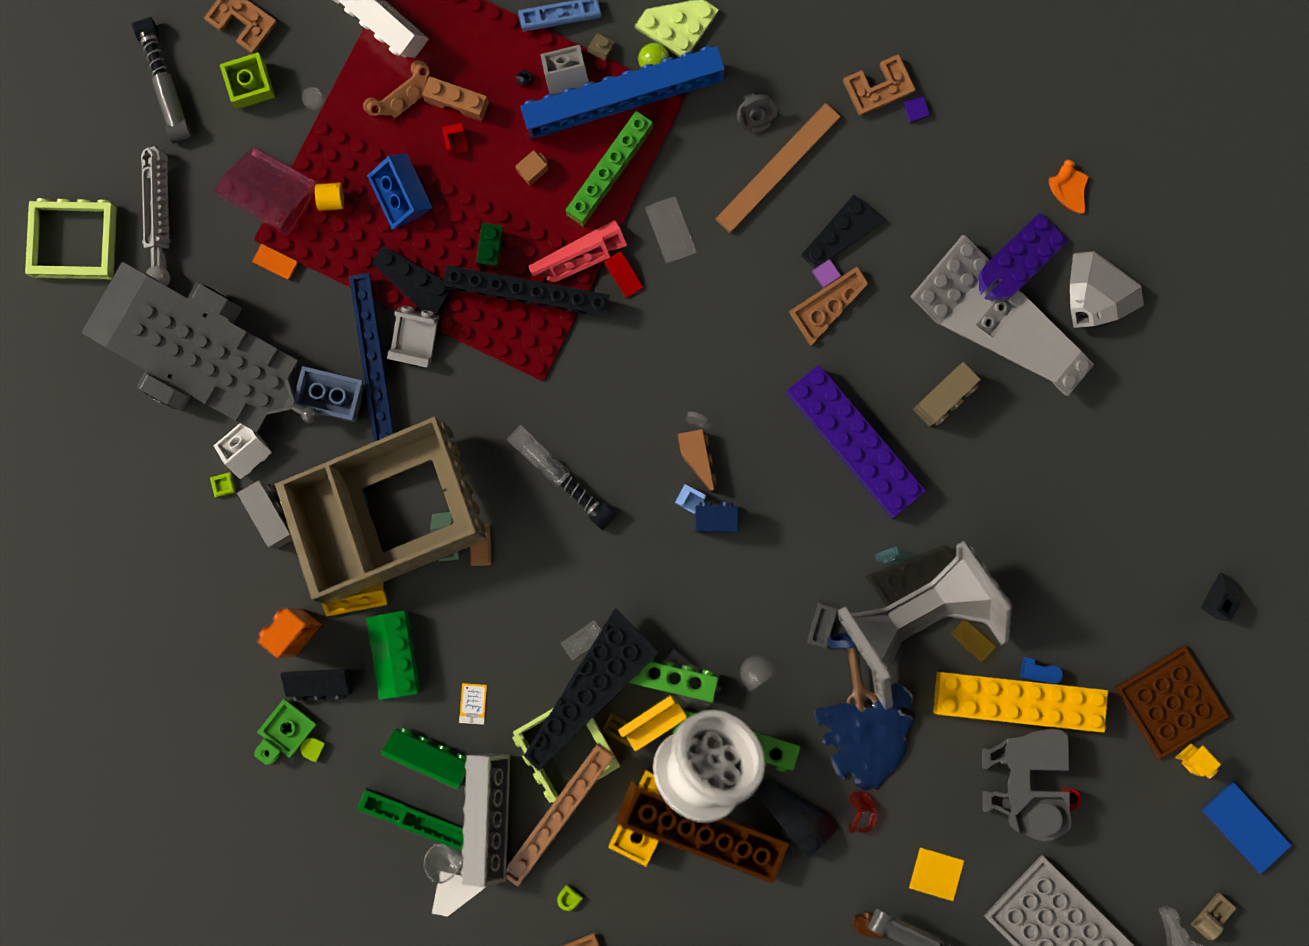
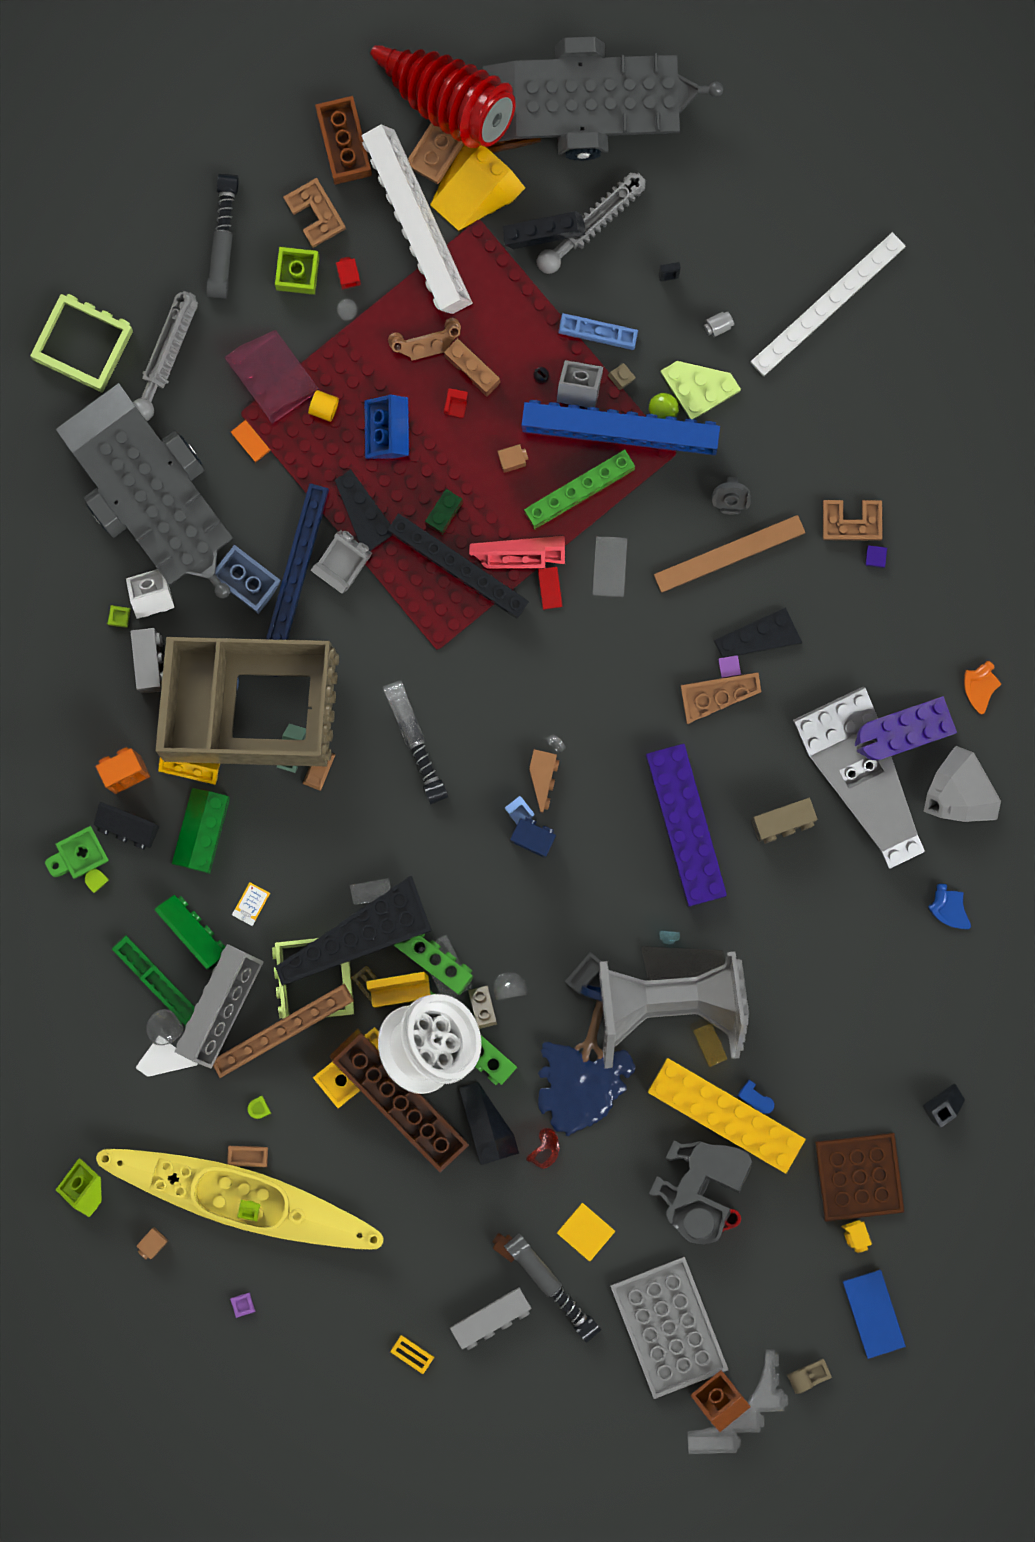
camera: 25 degrees right, 0 degrees up
(297, 62) = (348, 272): none -> red brick
(740, 703) = (482, 1007): none -> dark tan plate
(1137, 408) = (949, 908): none -> blue arm

